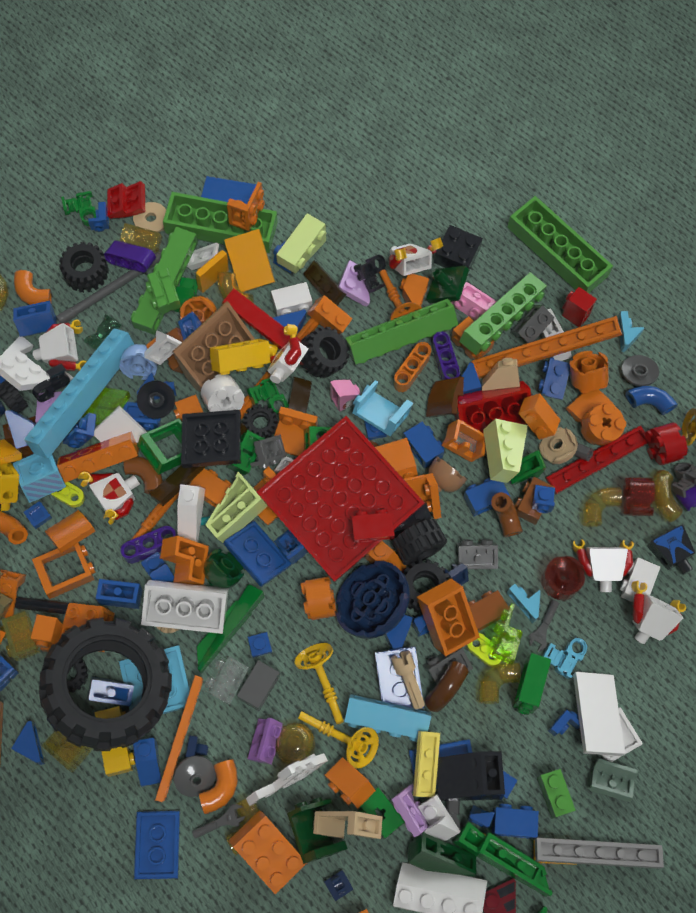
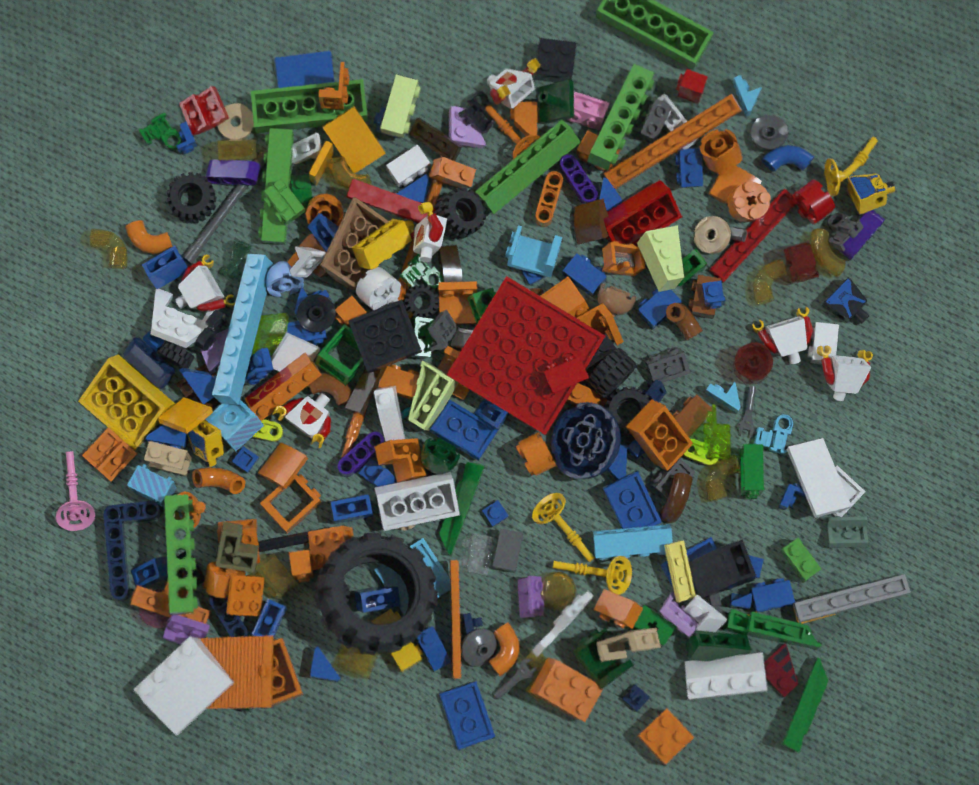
camera: 15 degrees left, 10 degrees up
(343, 393) = (493, 248): bright pink slope -> none
(404, 667) = (634, 493): tan piece -> none
(502, 375) = (638, 182): tan slope -> none
(539, 416) = (686, 213): orange brick -> none

